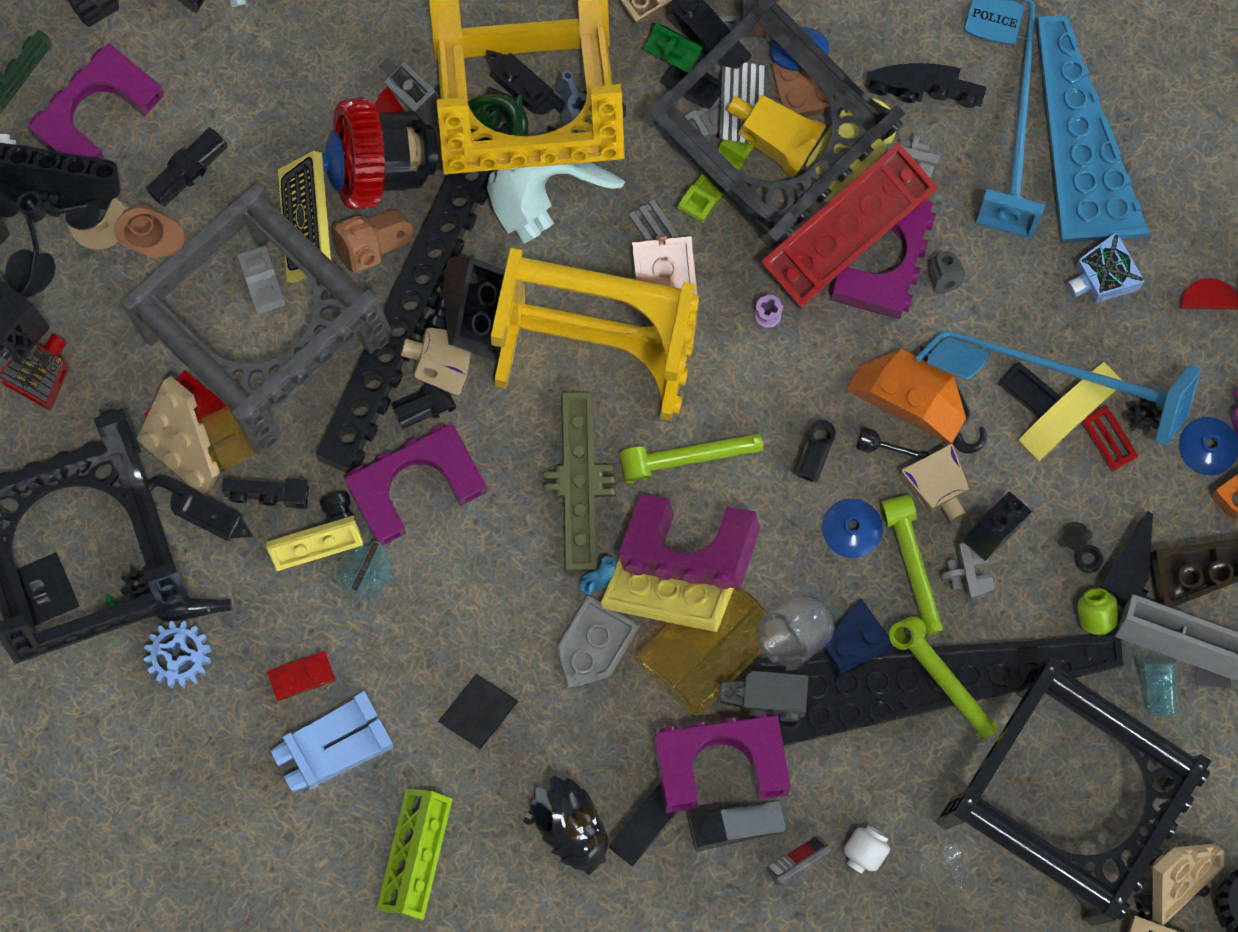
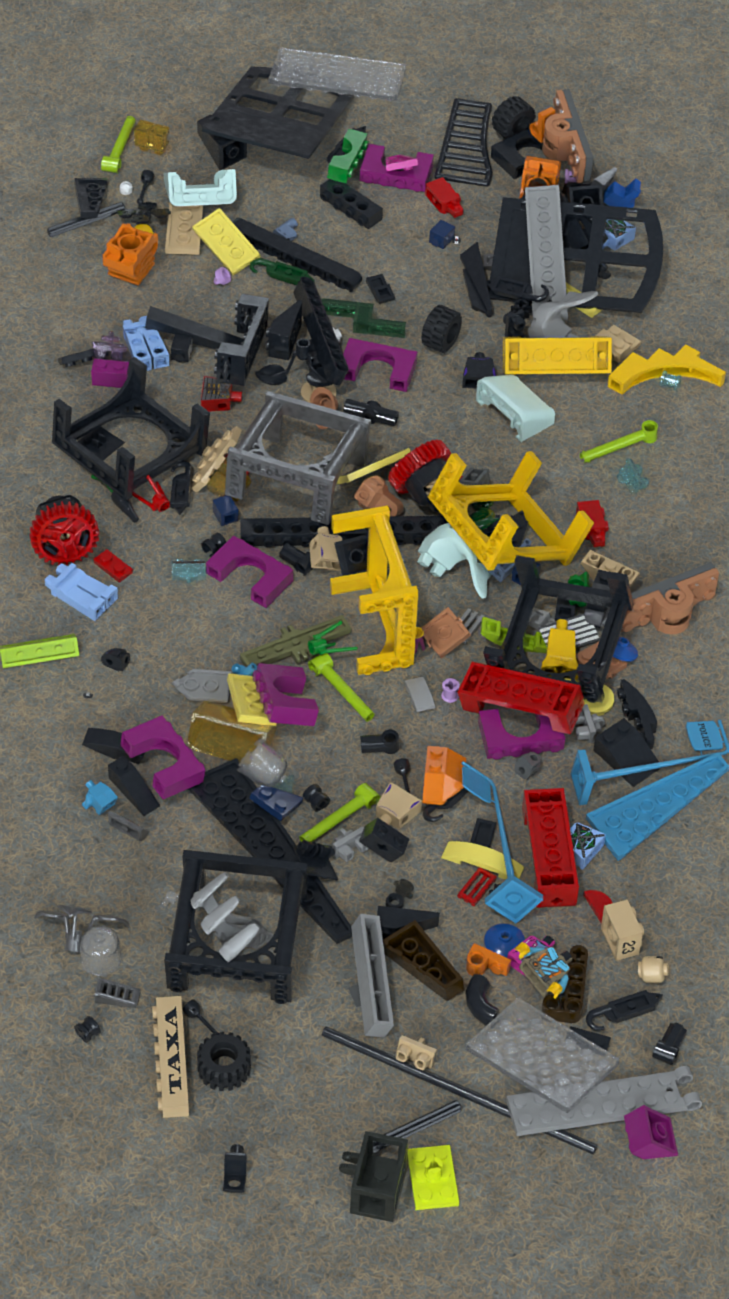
camera: 65 degrees right, 25 degrees down
(190, 657) = (99, 505): light blue gear -> none
(210, 552) = (159, 500): none -> red plant
(216, 722) = (63, 530): none -> red piece
(277, 465) = (225, 510): none -> dark blue brick
(292, 493) = (212, 519): black plate -> none
(314, 543) = (190, 539): light yellow tile -> none
(478, 711) = (134, 645): black piece -> none
(490, 753) = (116, 659): none -> black piece
(570, 824) = (90, 706): black head -> none
(611, 452) = (320, 646): none -> green plant
(736, 881) = (99, 797): none -> dark azure piece
(752, 354) = (420, 694): none -> light grey slope
(769, 694) = (218, 767): dark grey hinge -> none
(849, 542) = (344, 787): blue dish -> none
(866, 849) = (152, 853): white head -> none
(871, 581) = (314, 795): none -> black wheel
(941, 673) = (293, 825): lime piece -> none
(979, 133) = (623, 748): none -> black slope
(985, 633) = (317, 858): none -> black hinge
(1098, 612) = (361, 906): lime head -> none
(1098, 803) = (231, 929): none -> light grey piece
(1107, 311) = (551, 846): none -> red plate
(1162, 688) = (333, 962): clear light blue hips -> none
(1181, 876) = (216, 1003): tan plate -> none

